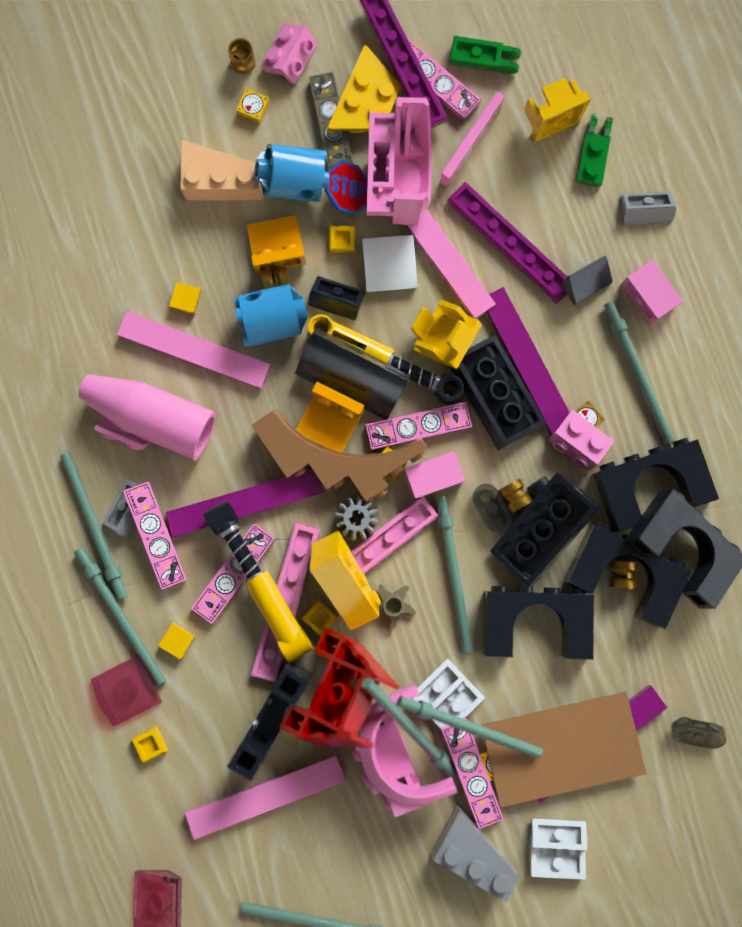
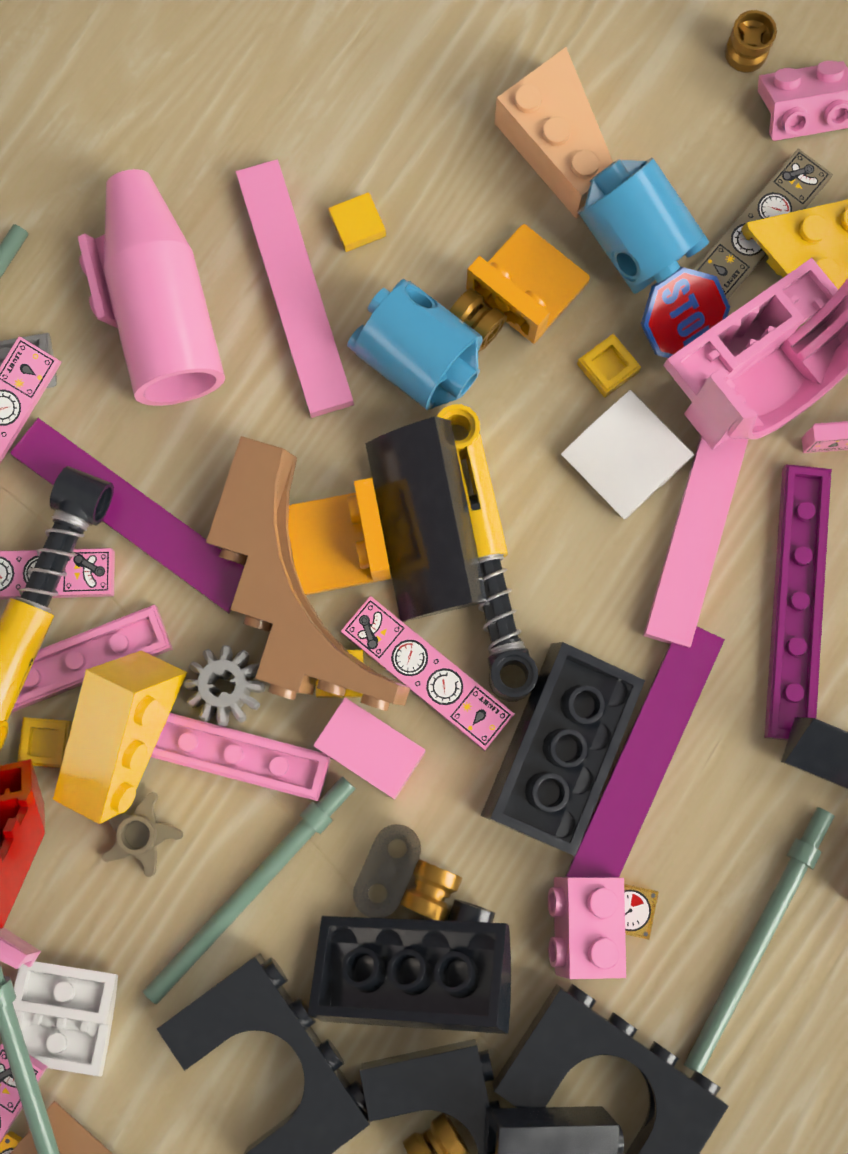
camera: 55 degrees right, 5 degrees down
(253, 105) = (695, 108): tile -> none
(336, 298) = (520, 420): black slope -> none
(444, 334) = (585, 607): yellow panel -> none

